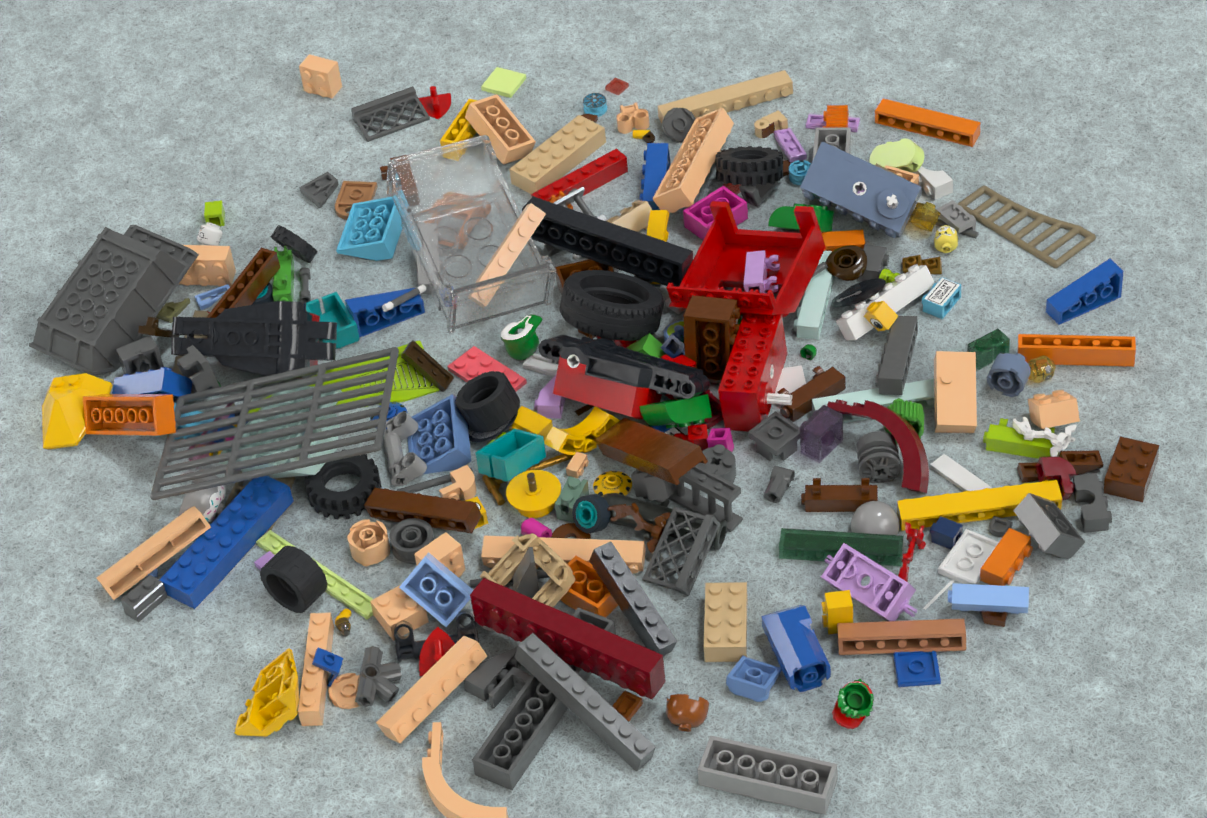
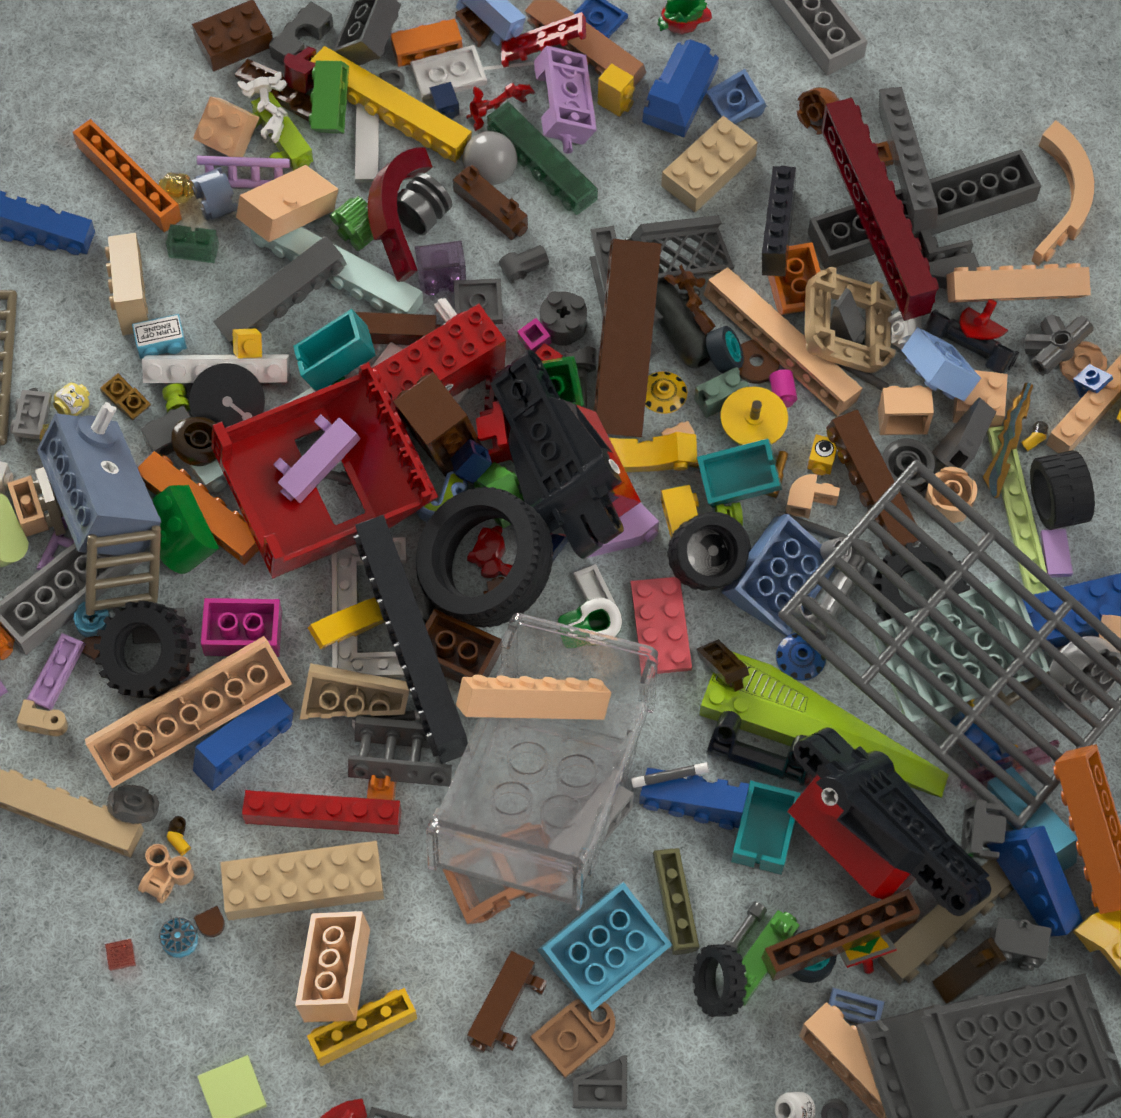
camera: 145 degrees left, 20 degrees up
(354, 270) = (676, 901): none -> olive brick
(359, 605) = (1009, 437): none -> pearl gold sword
(385, 569) = (965, 438): none -> dark grey slope
(390, 339) = (725, 744): none -> black piece
(799, 175) = (93, 564): none -> dark tan bar
(816, 346) = (334, 350): none -> teal piece
(923, 606) = (539, 38): none -> red hinge
(995, 302) = (126, 281): none -> tan wedge
(1013, 404) = (255, 164): none -> lavender bar
(1014, 469) = (329, 97): none -> bright green brick

